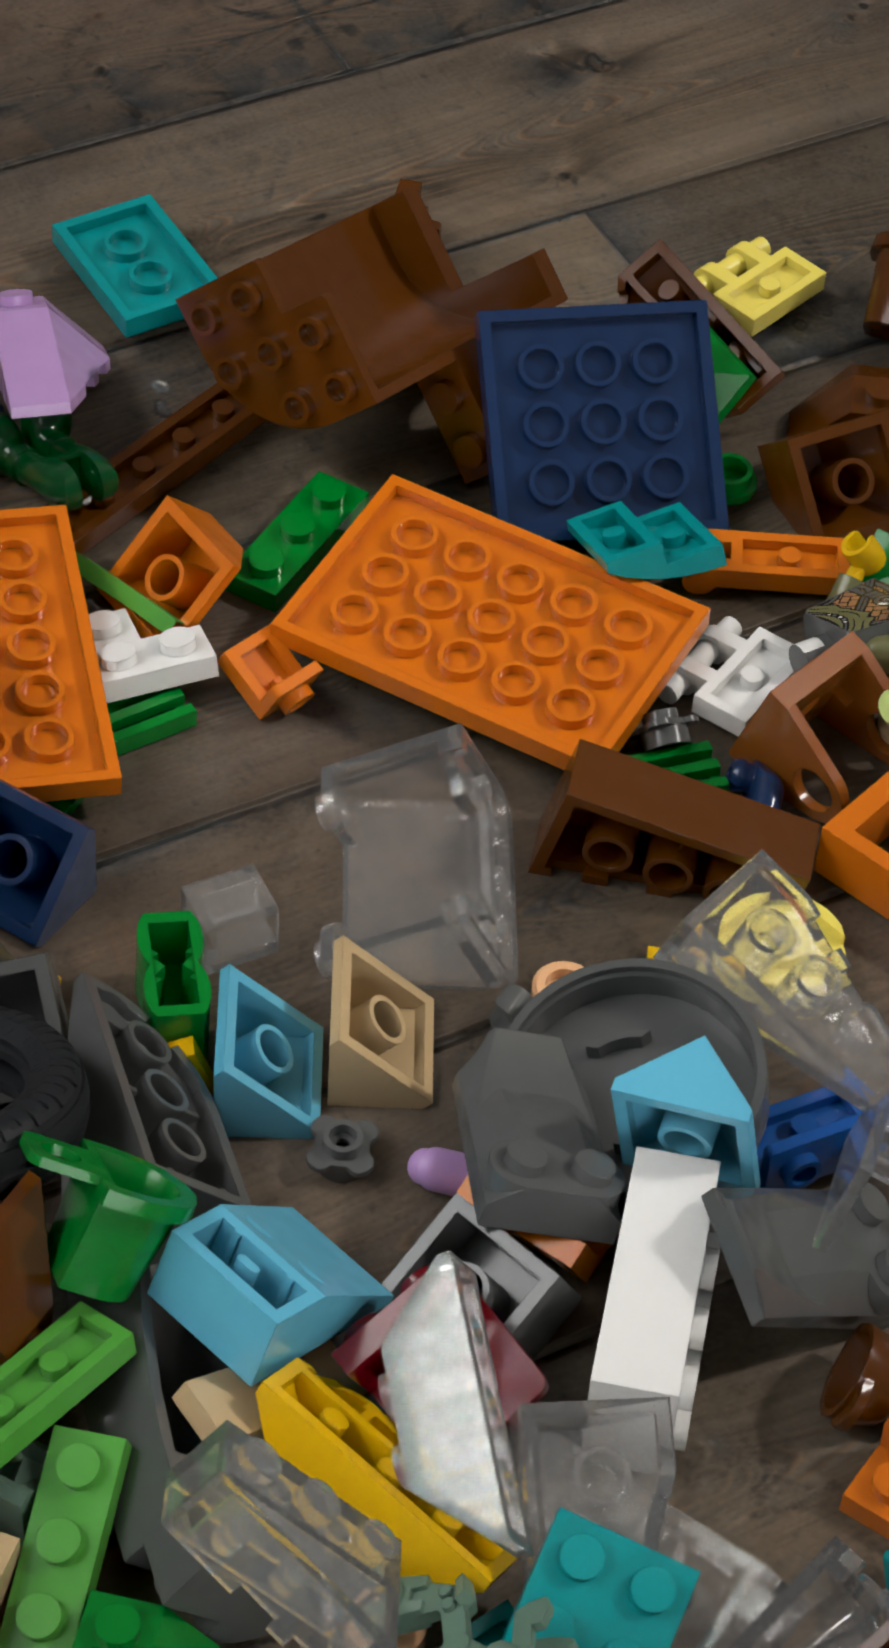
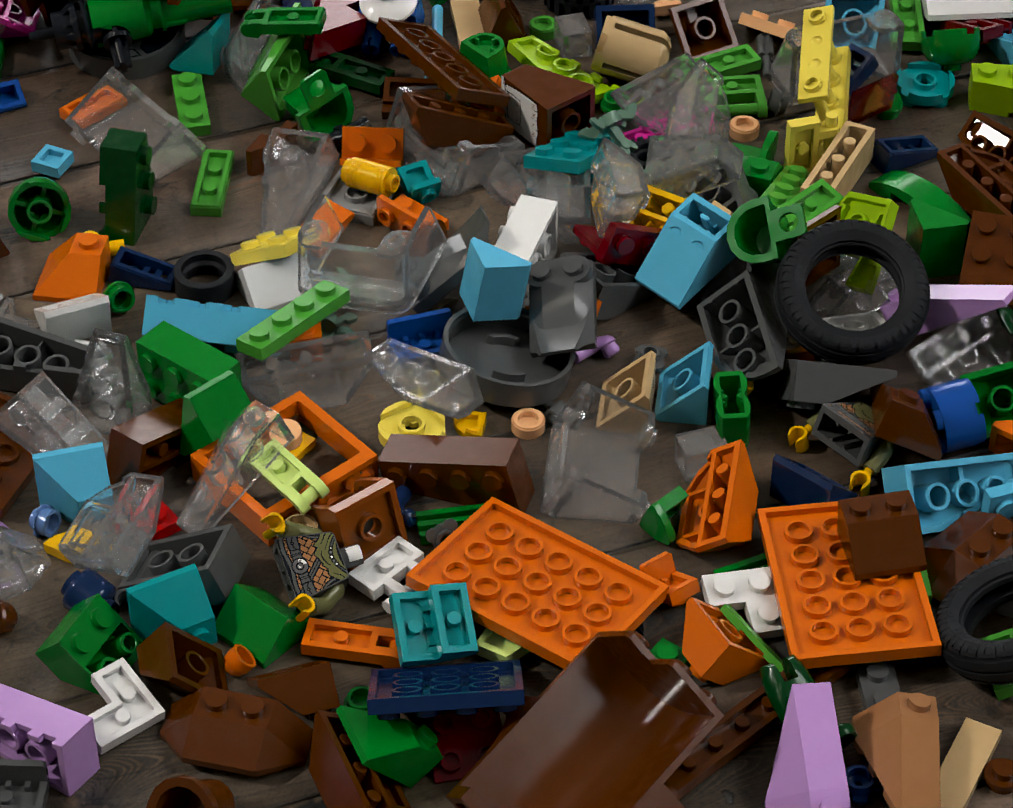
camera: 170 degrees left, 5 degrees down
(194, 781) = (720, 502): none -> orange wedge
(286, 799) = (657, 516): none -> green tile

